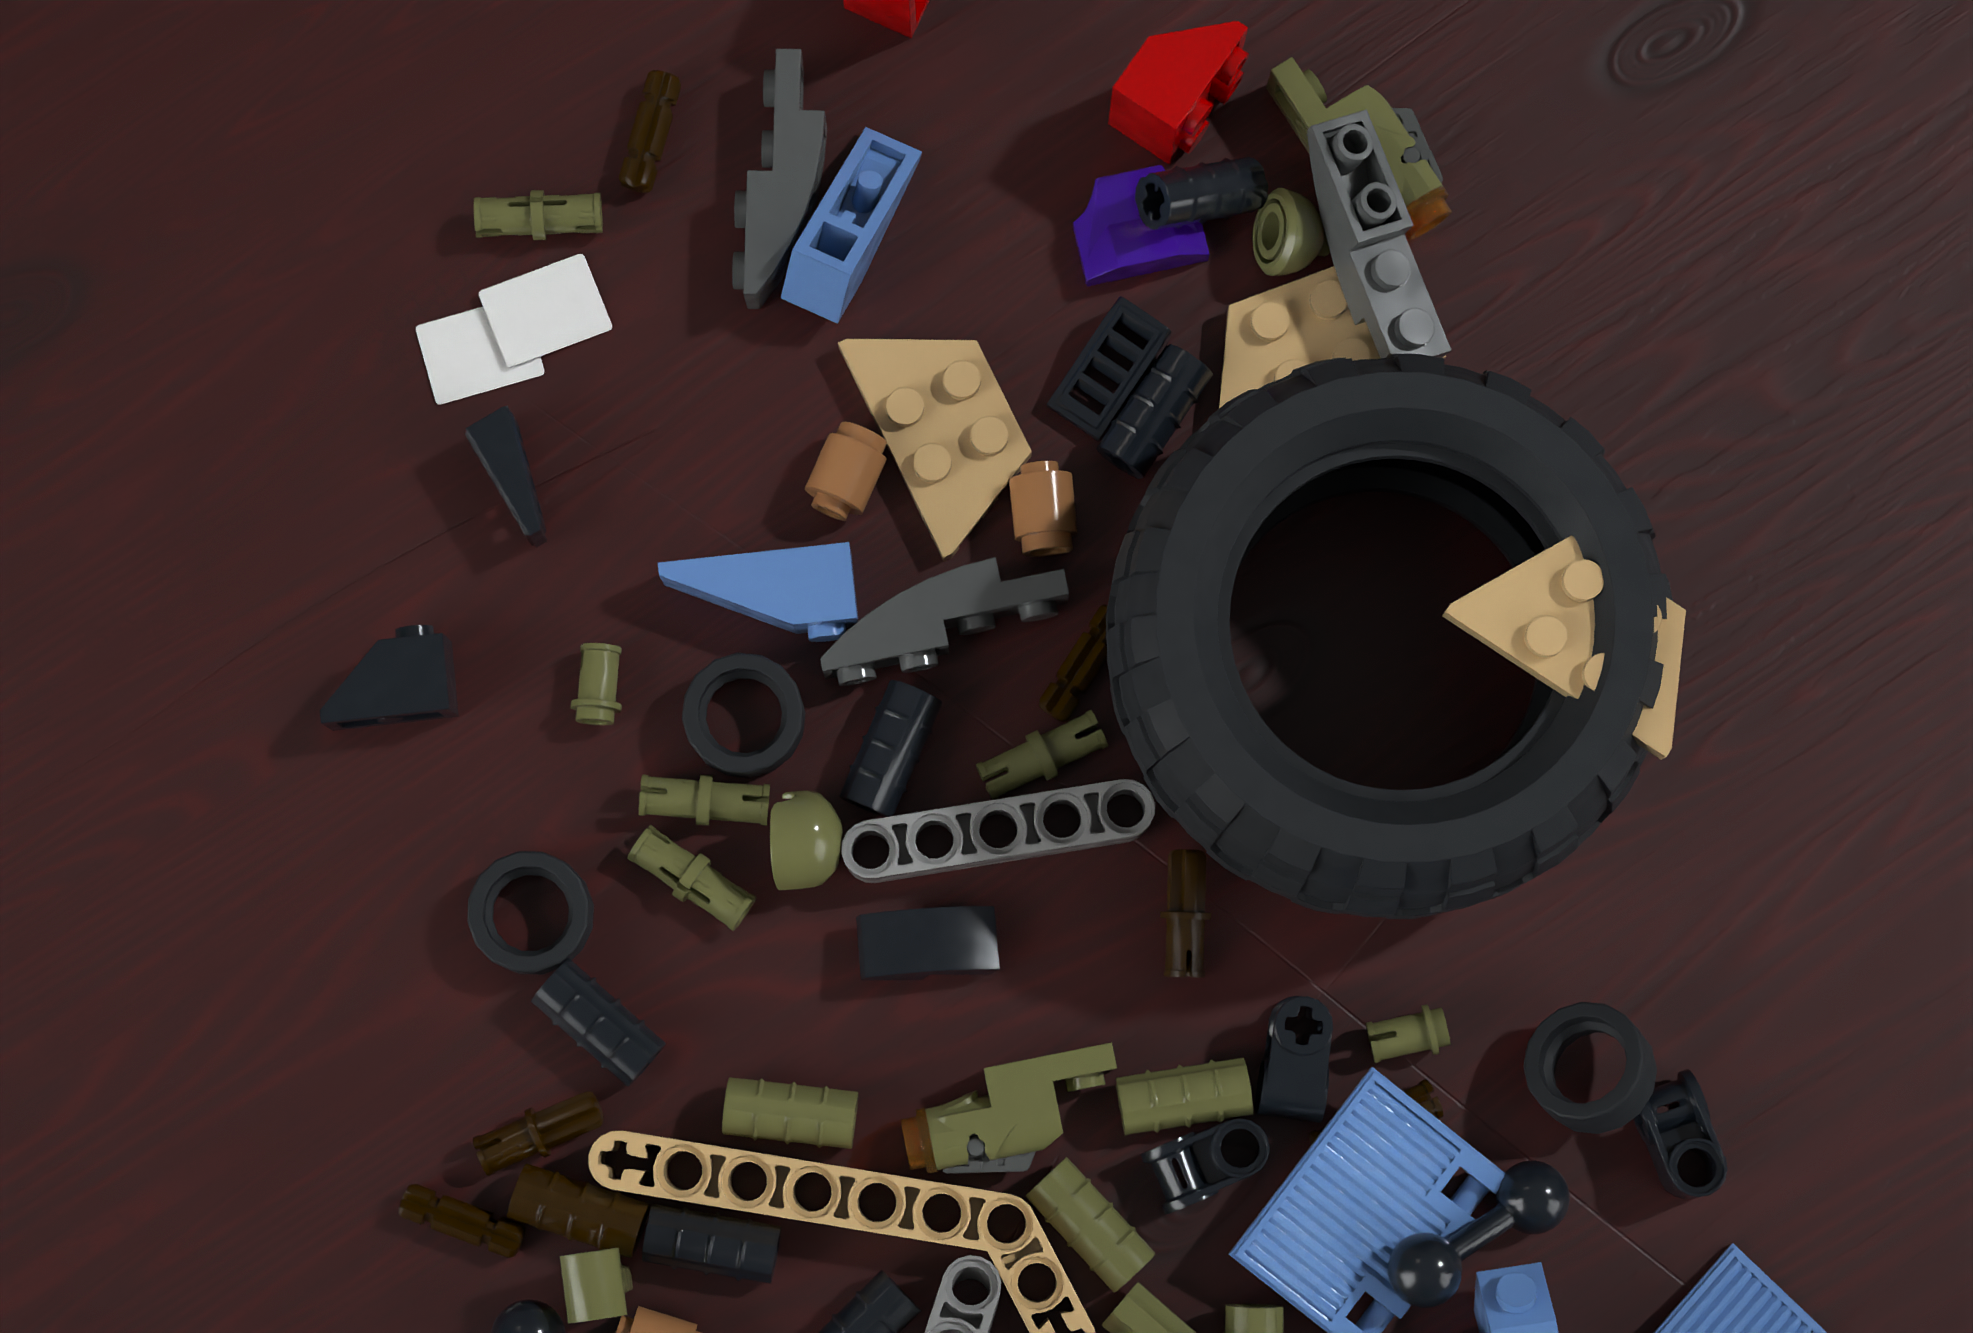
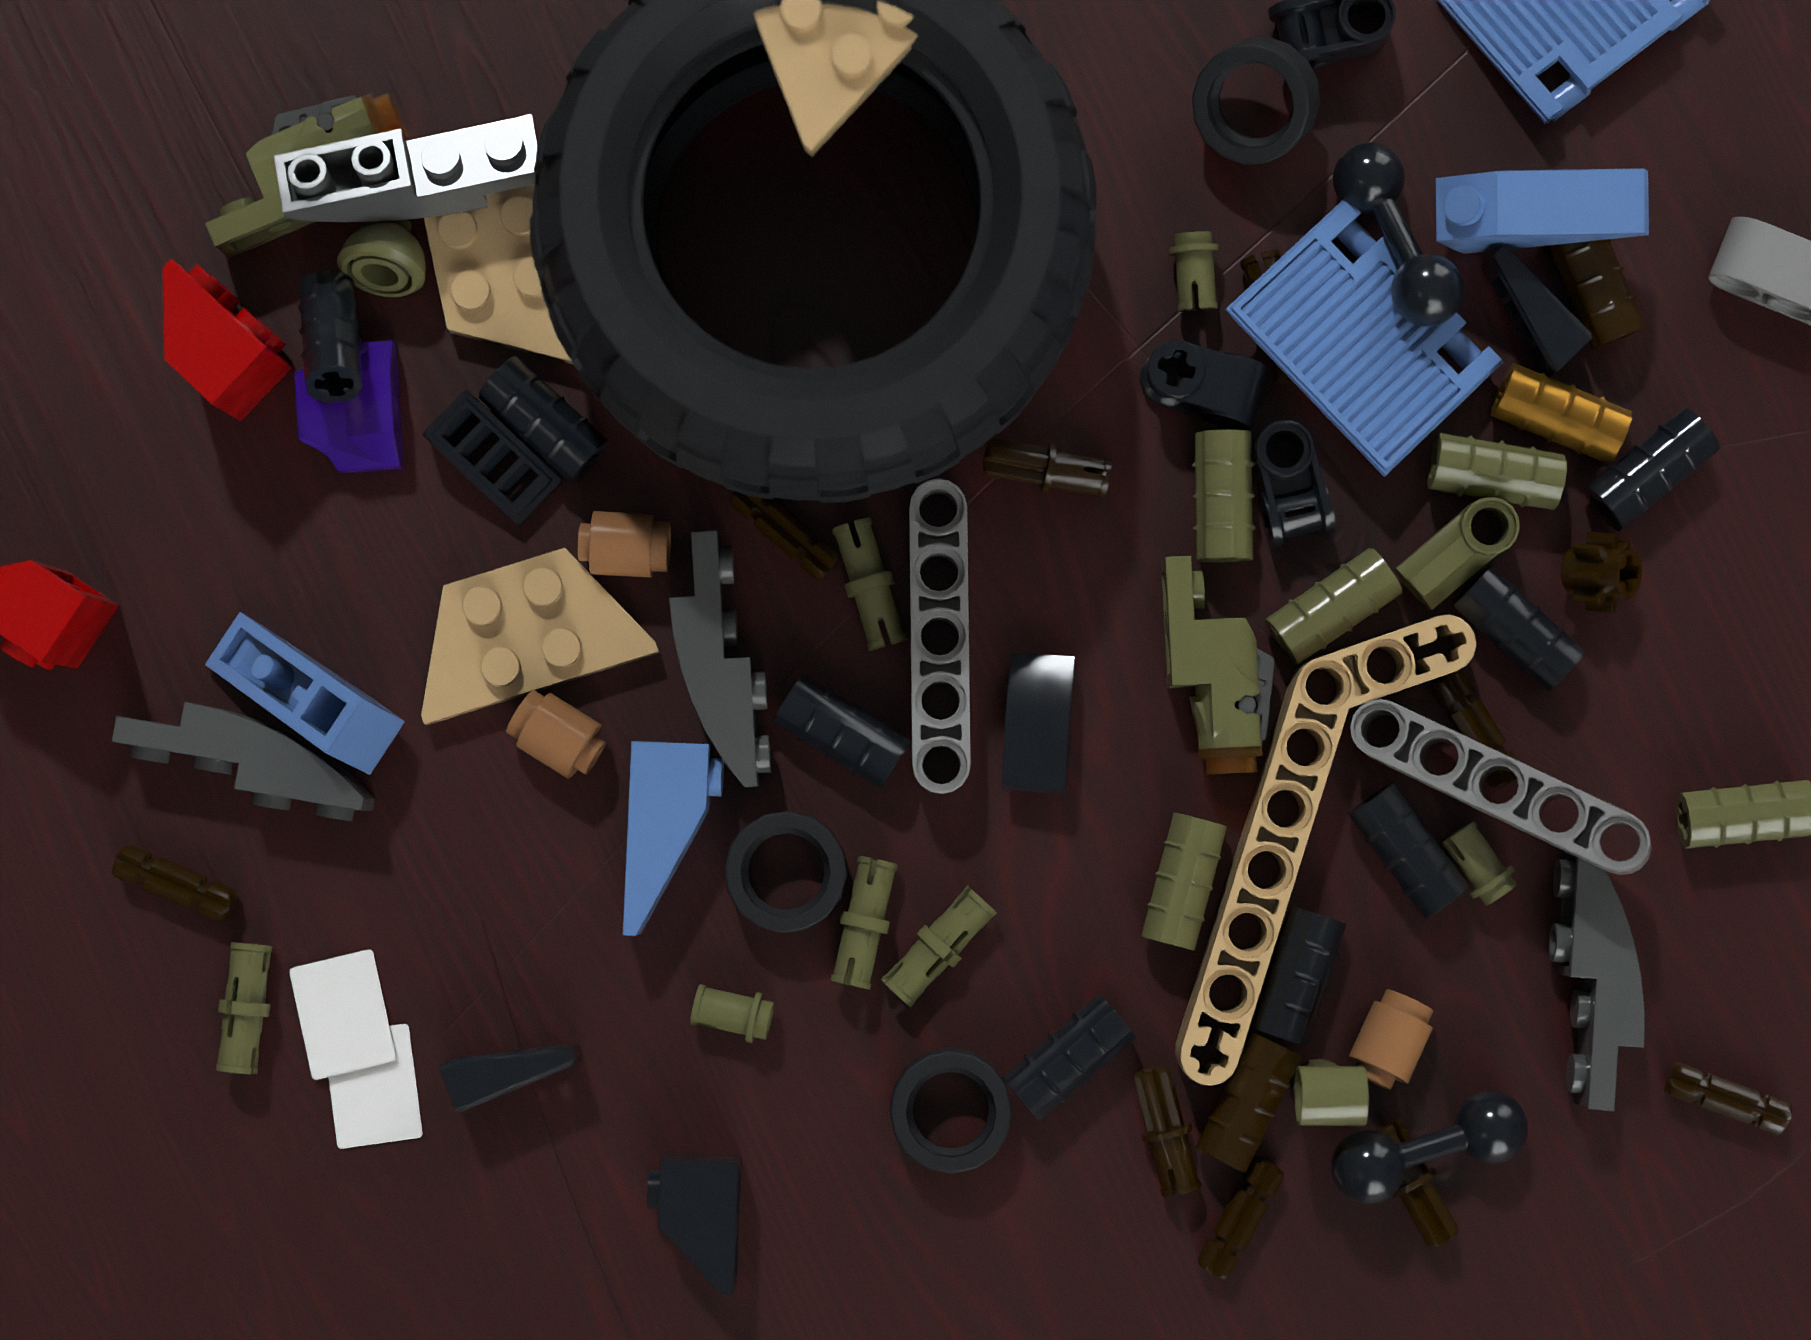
camera: 80 degrees left, 5 degrees up
(804, 840) = (921, 828): olive hair -> none

